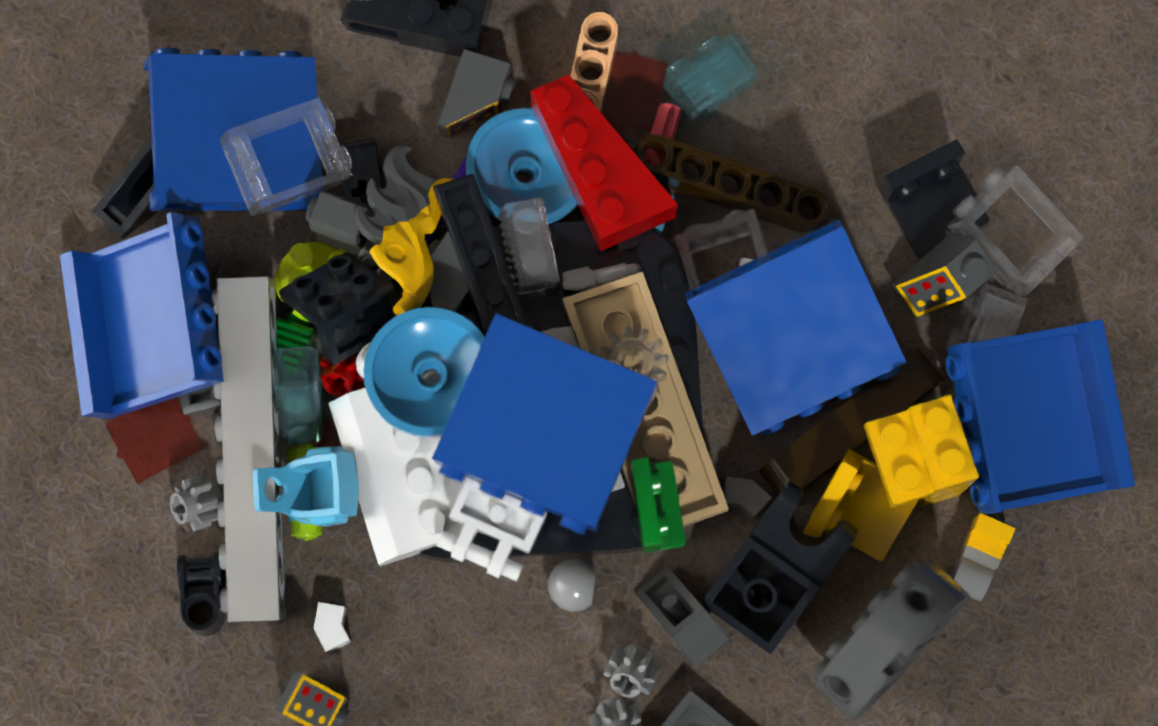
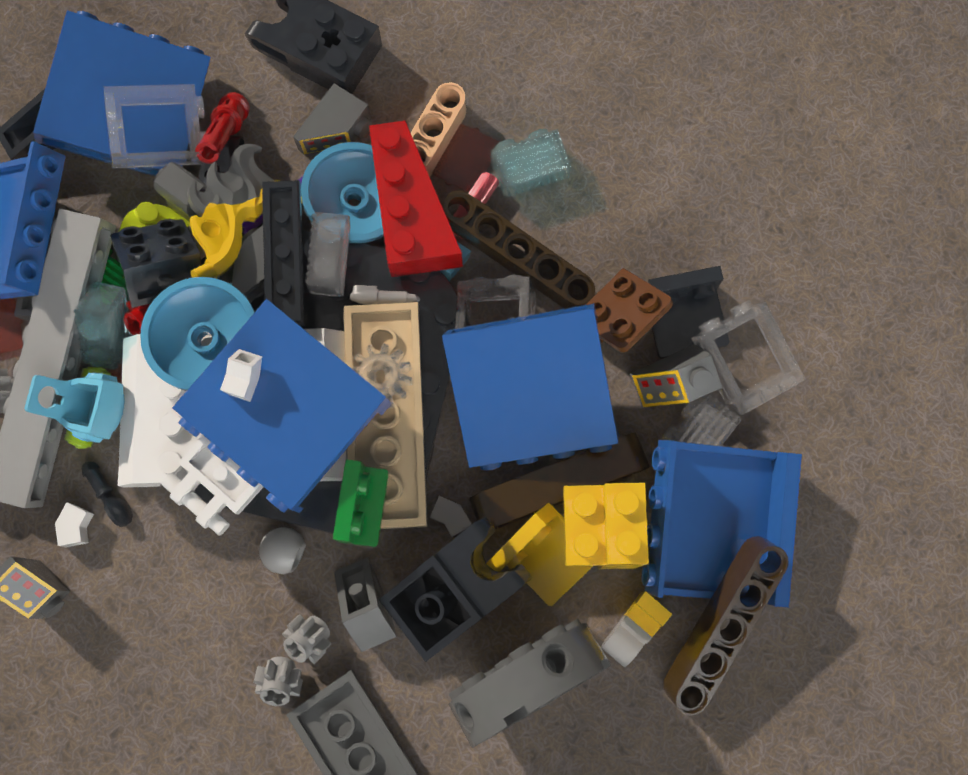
camera: 20 degrees right, 0 degrees up
(355, 128) = (225, 121): none -> red pin
(369, 592) = (115, 507): none -> black piece
(500, 401) = (242, 375): none -> white piece
(873, 214) = (628, 309): none -> reddish brown bracket
(1066, 502) = (725, 643): none -> dark brown beam

